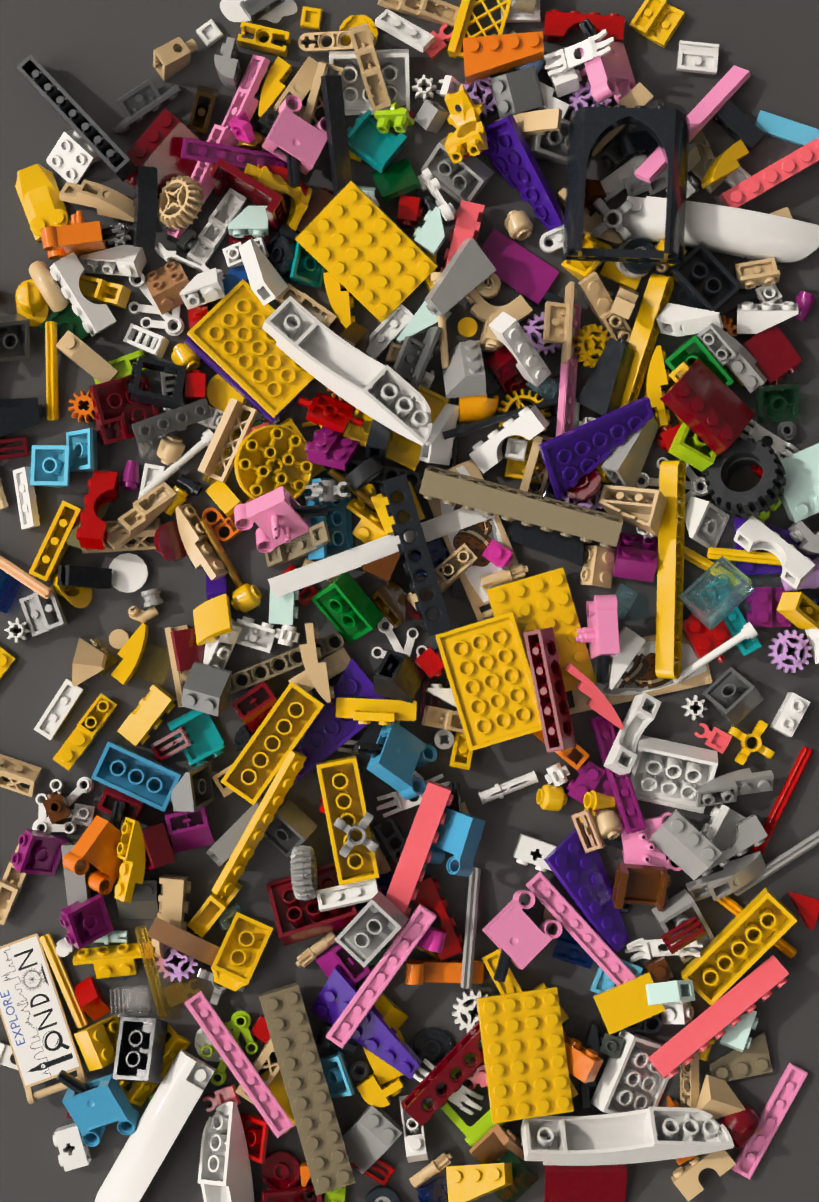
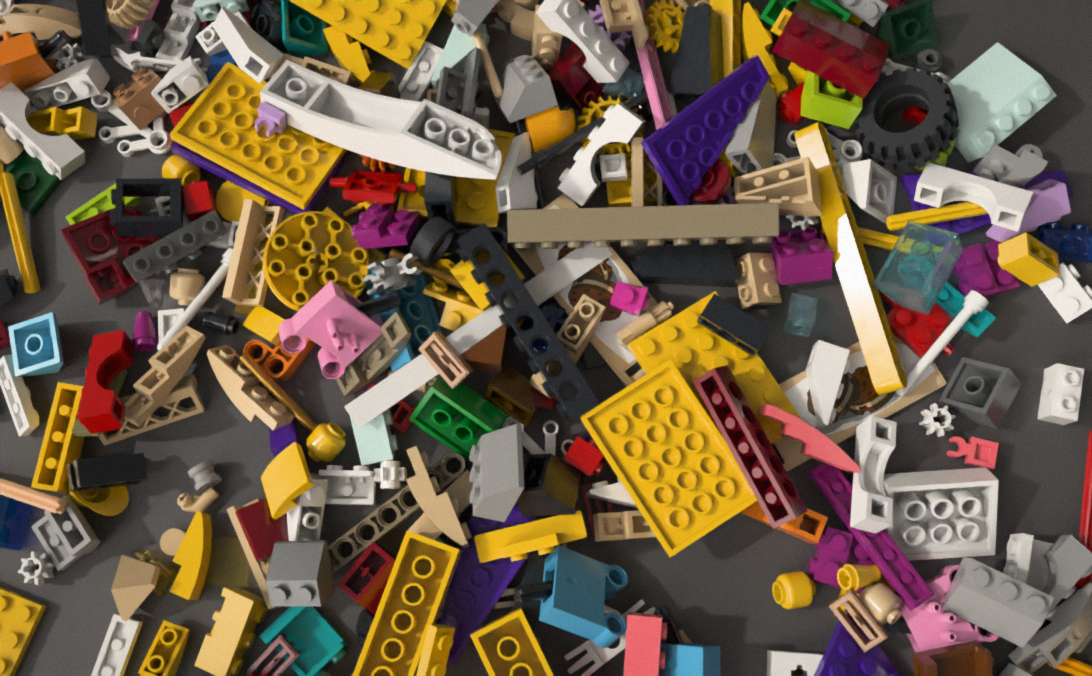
camera: 10 degrees left, 10 degrees down
(76, 409) = (59, 266): orange gear -> none
(83, 450) = (77, 316): medium azure slope -> none
(86, 358) = (51, 201): tan slope -> none
(128, 573) = (168, 453): white tile -> none
(158, 344) = (146, 167): white slope -> none
(169, 542) = (209, 398): dark red tile -> none
(179, 500) = (212, 340): yellow cone -> none
(267, 340) = (272, 118): none -> lavender tile
(352, 564) = (448, 356): none -> medium nougat tile
(365, 658) = (497, 473): none -> light grey slope
(445, 738) = (626, 551): light grey wheel -> none
(461, 755) = (658, 565): yellow slope -> none
(467, 327) = (512, 48): yellow tile -> none
(508, 787) = (725, 598): white pin -> none
(557, 774) = (791, 557): white gear -> none
(566, 598) = (734, 325): none -> black piece
(601, 633) = (793, 355): bright pink piece -> none
(732, 784) = (1020, 507): light grey slope -> none
(745, 751) = (1035, 445): yellow pin -> none
(794, 658) = (1041, 320): lavender gear -> none

